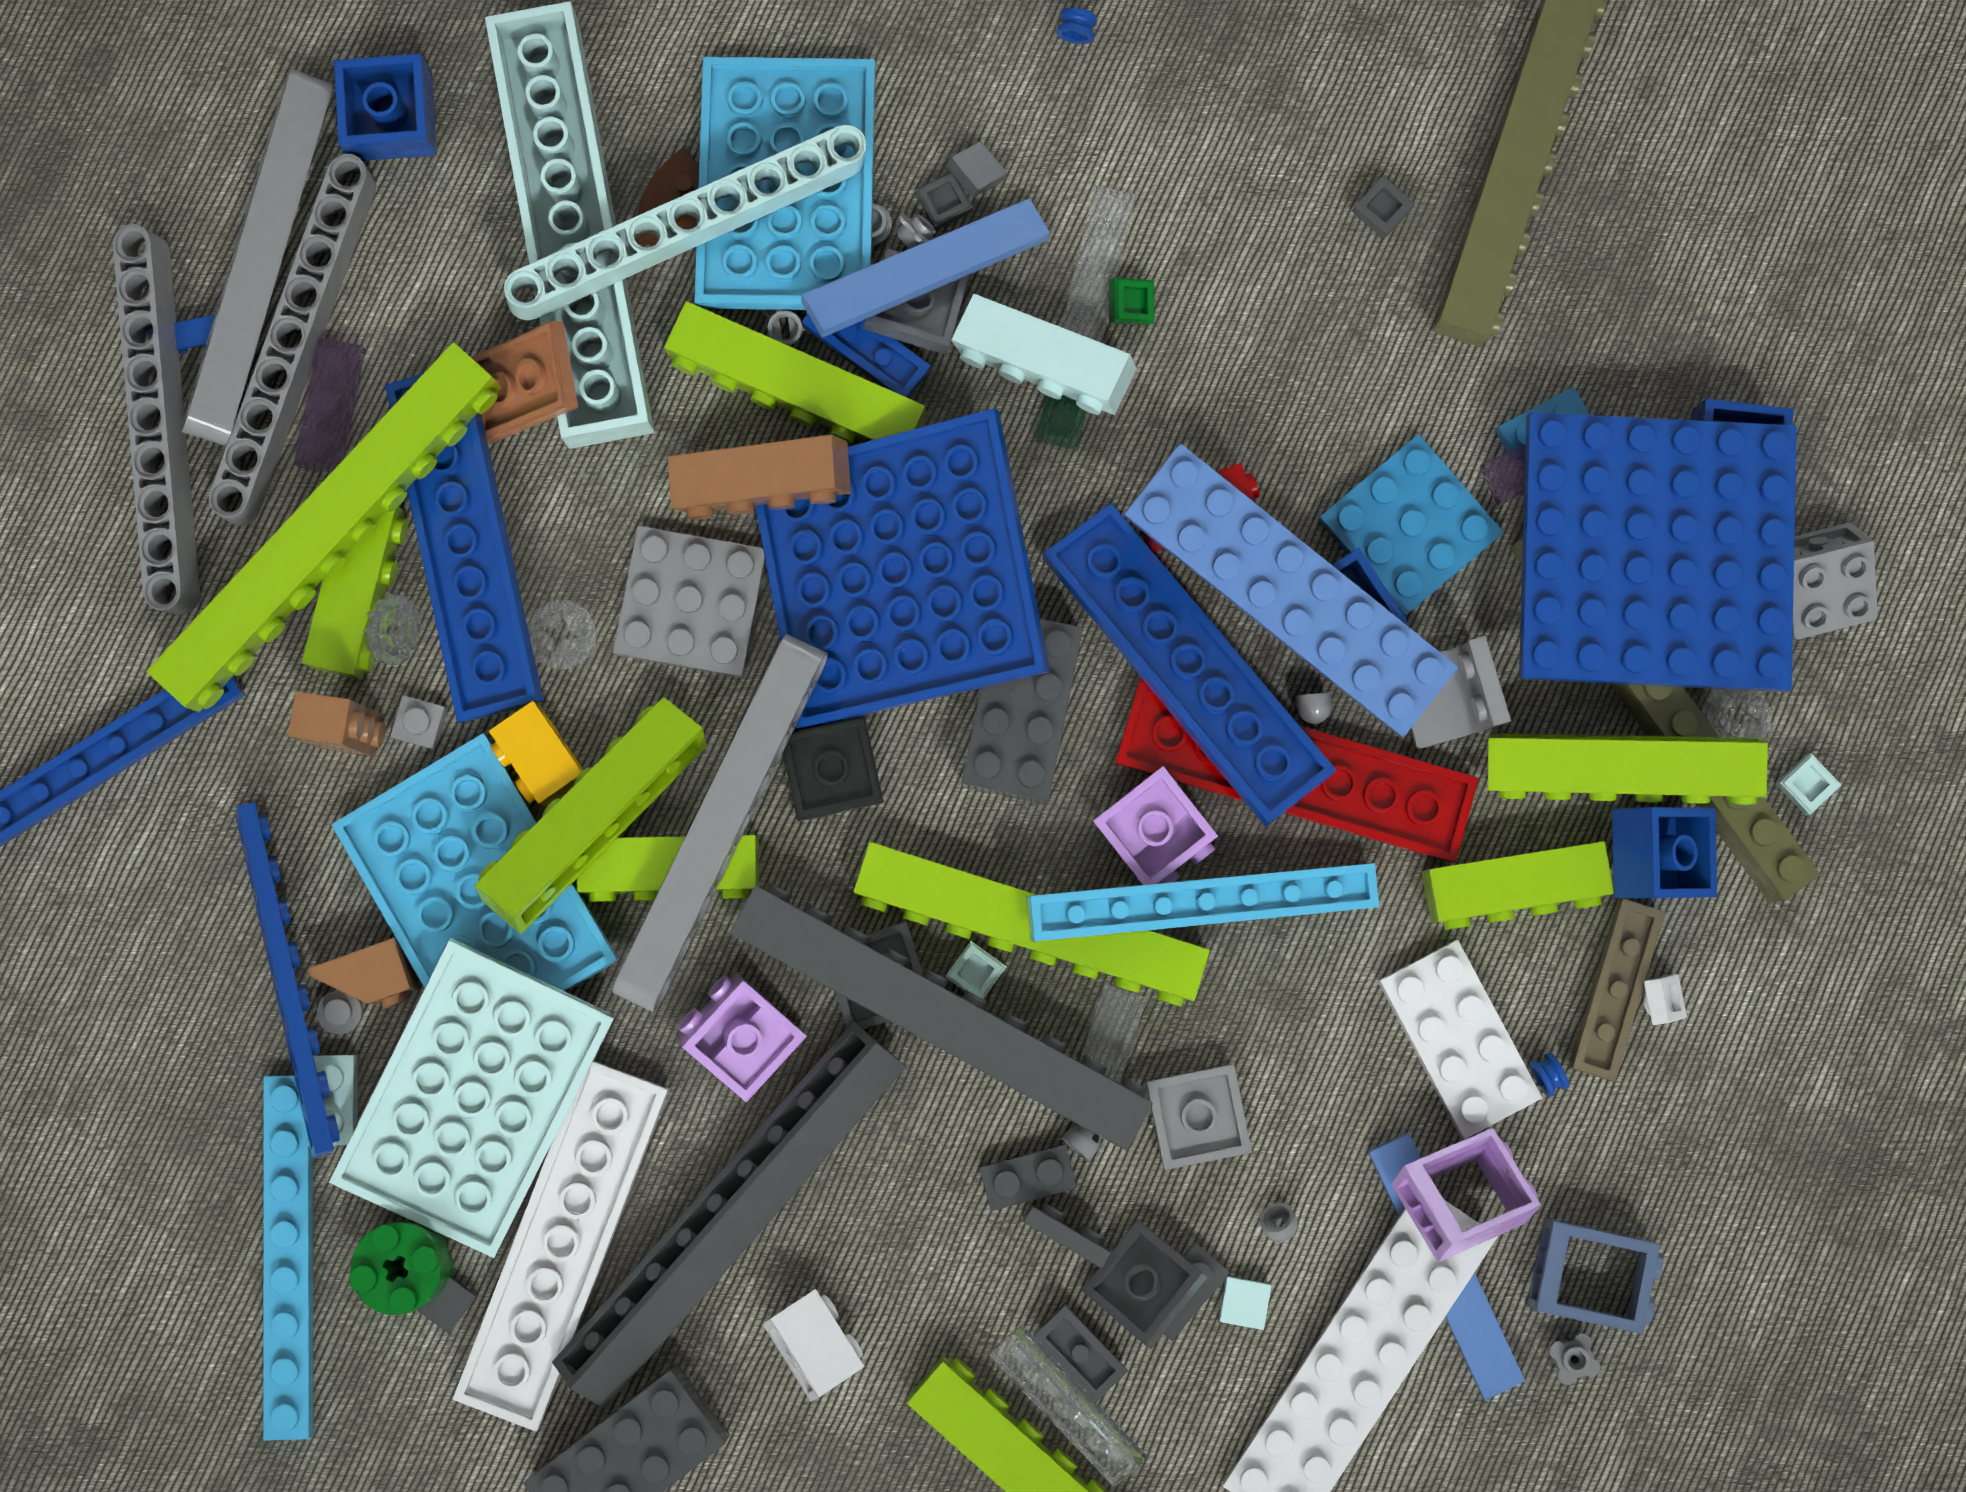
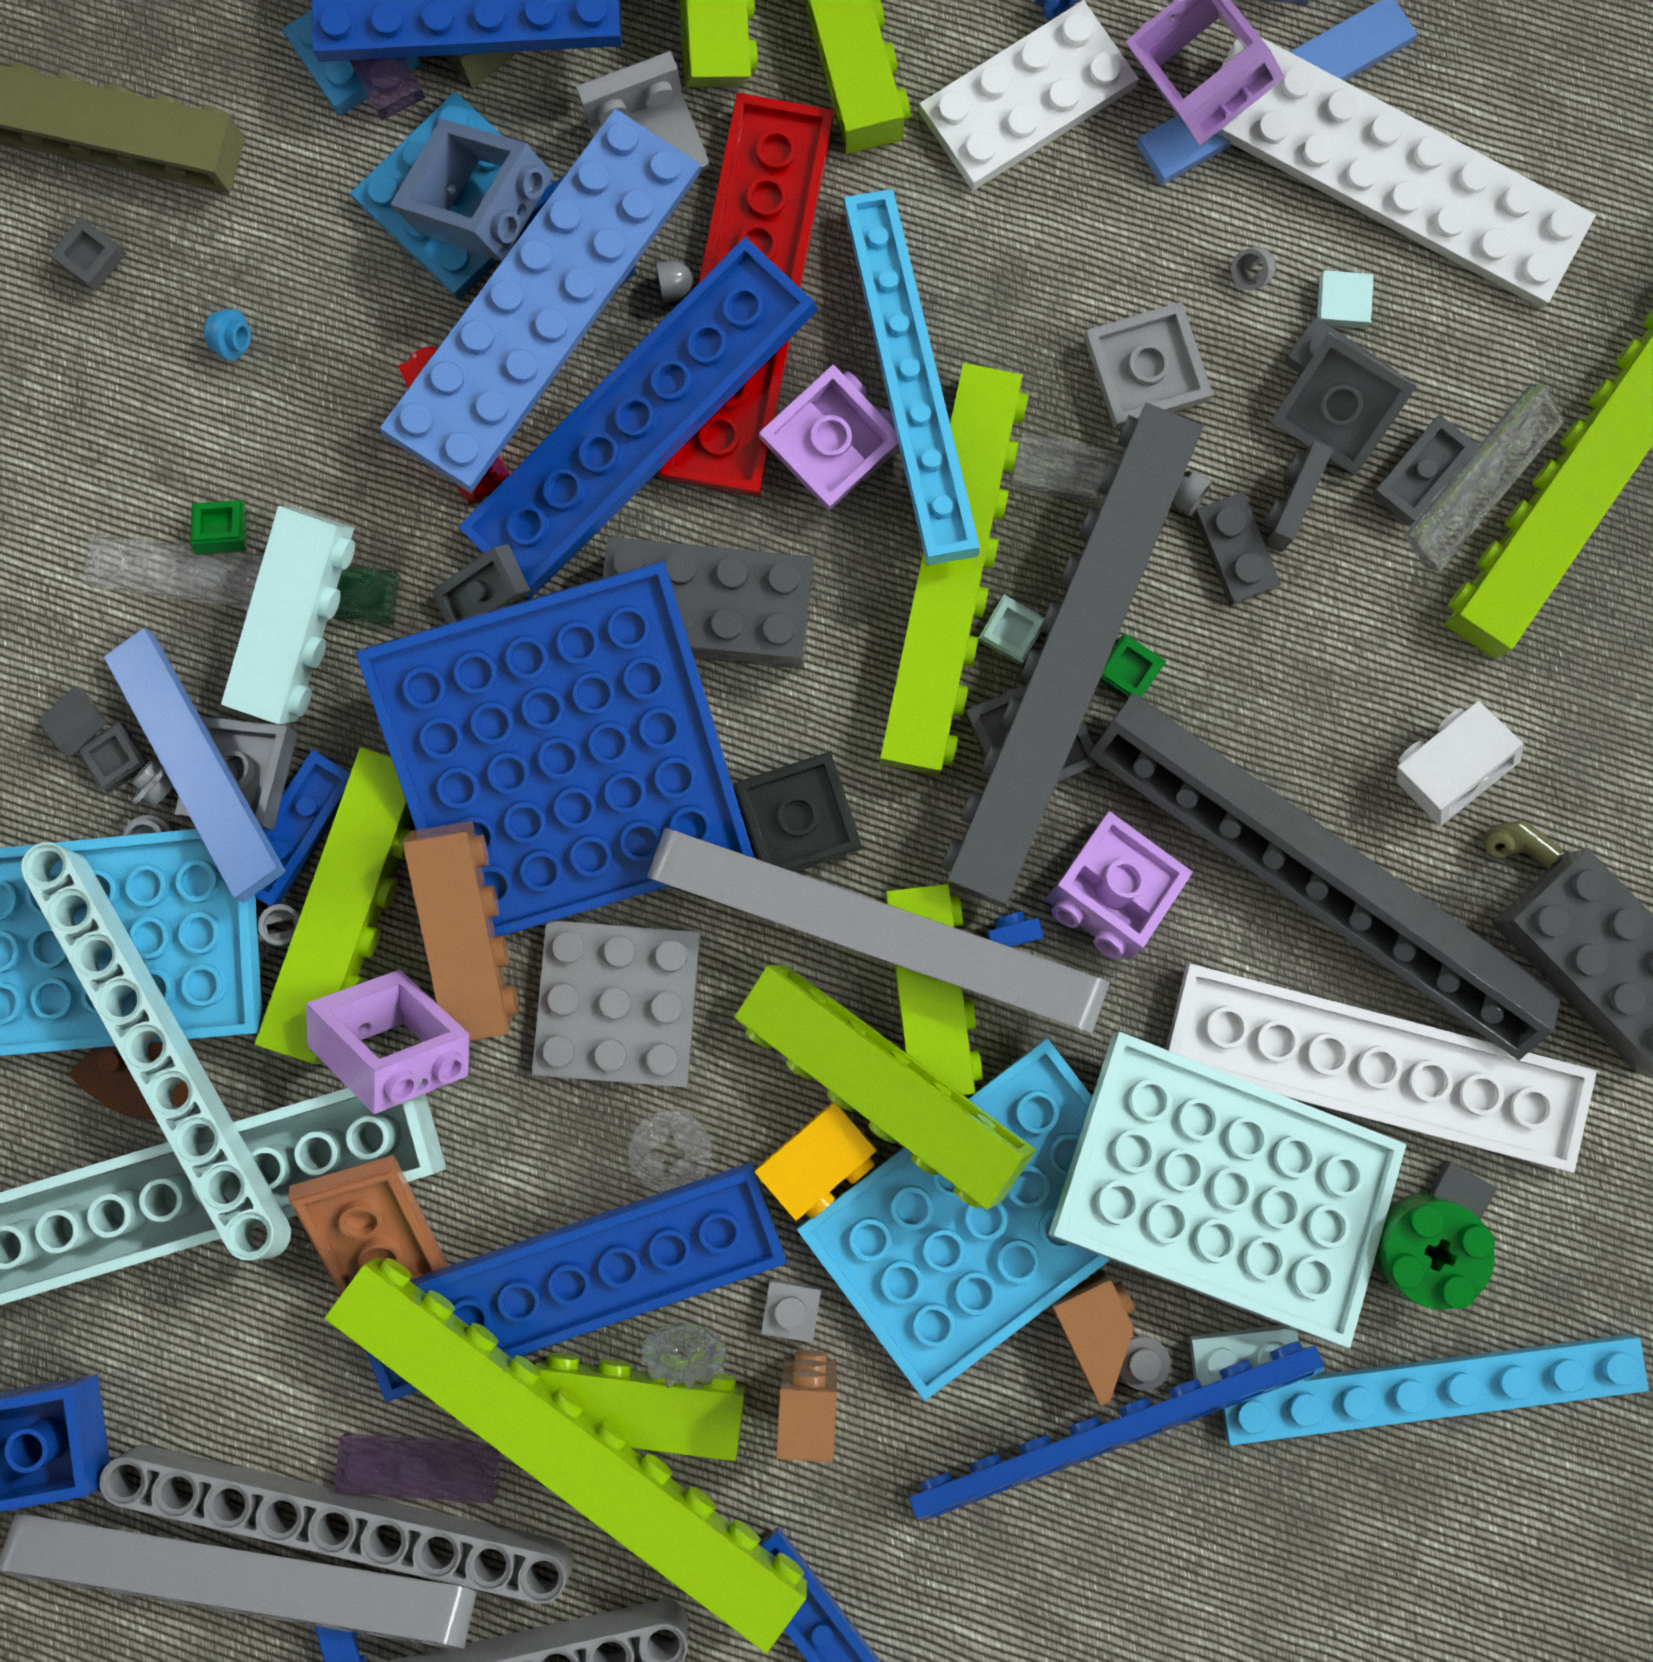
camera: 90 degrees left, 0 degrees up
(705, 398) = (350, 1015): none -> lavender window
(711, 941) = (1015, 930): none -> blue plate
(745, 1394) = (1518, 838): none -> olive arm
(931, 1070) = (1131, 668): none -> green tile
(1050, 517) = (482, 586): none -> dark grey plate
(1300, 320) = (227, 334): none -> dark azure plate
(1416, 512) = (443, 172): none -> sand blue window

